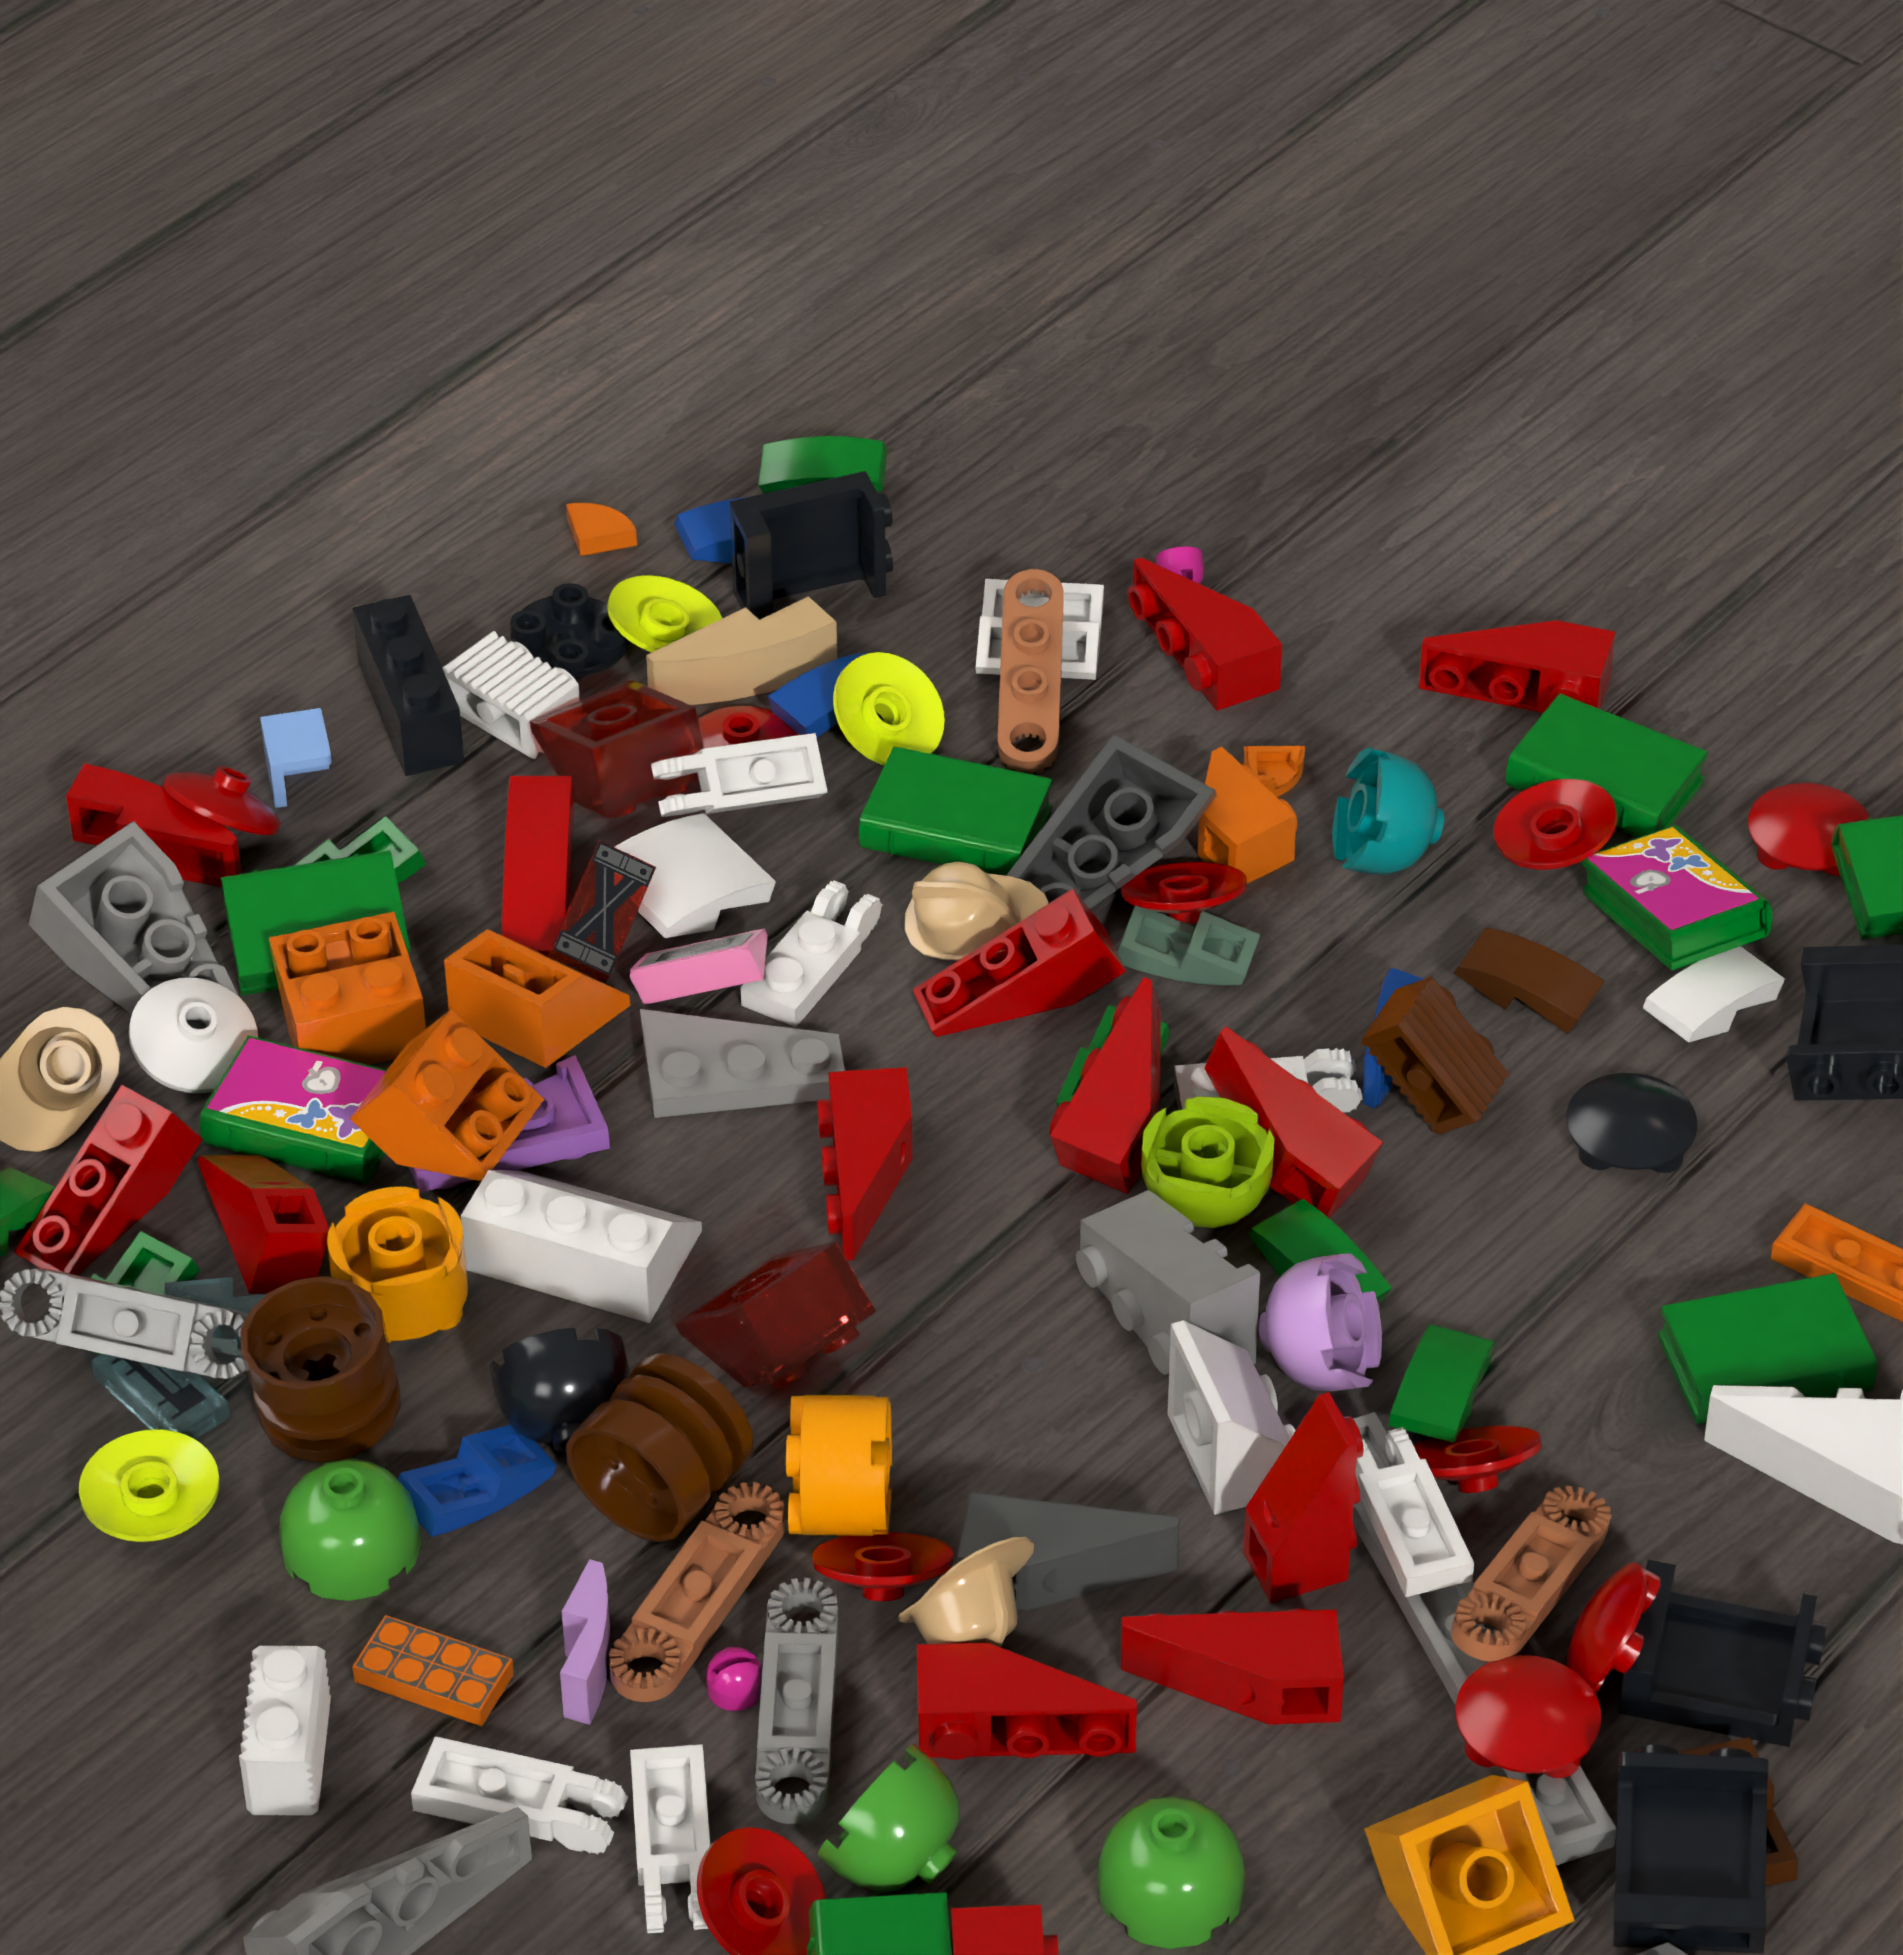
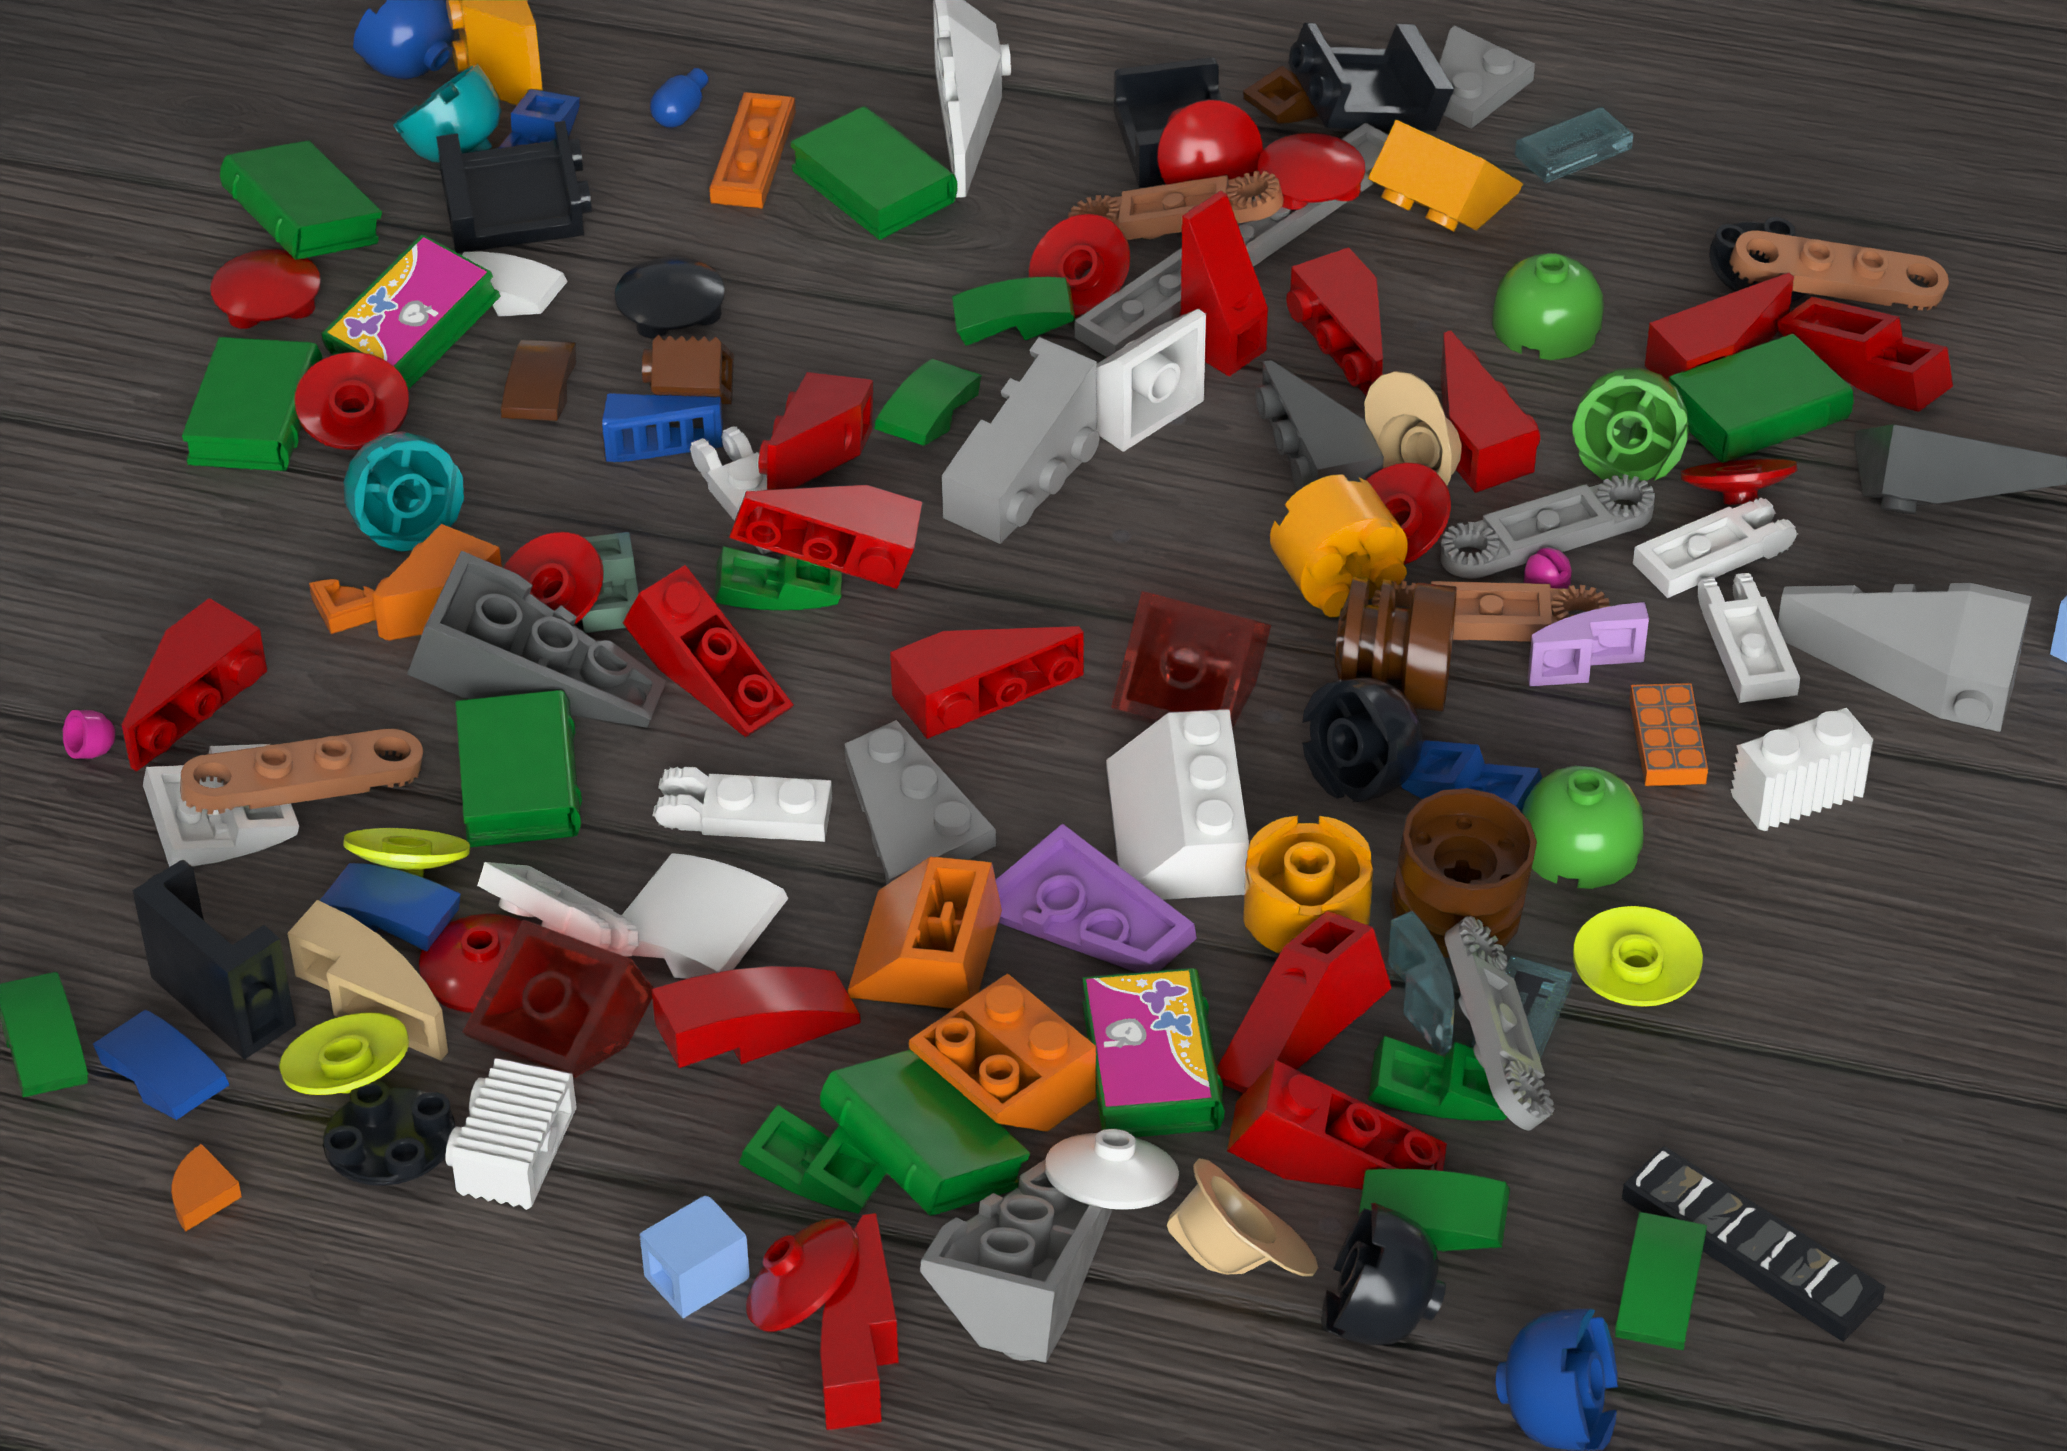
camera: 115 degrees left, 0 degrees up
(408, 685) = (544, 1210): black brick -> none
(447, 1103) = (1121, 911): orange slope -> none
(602, 911) = (797, 930): tile -> none
(700, 967) = (815, 851): bright pink slope -> none
(965, 908) = (647, 713): tan piece -> none
(1208, 1160) = (891, 448): lime cylinder -> none
(1323, 1324) = (1000, 345): lavender cylinder -> none
(1412, 1519) = (1159, 268): white hinge -> none
(1521, 664) = (139, 468): red slope -> none

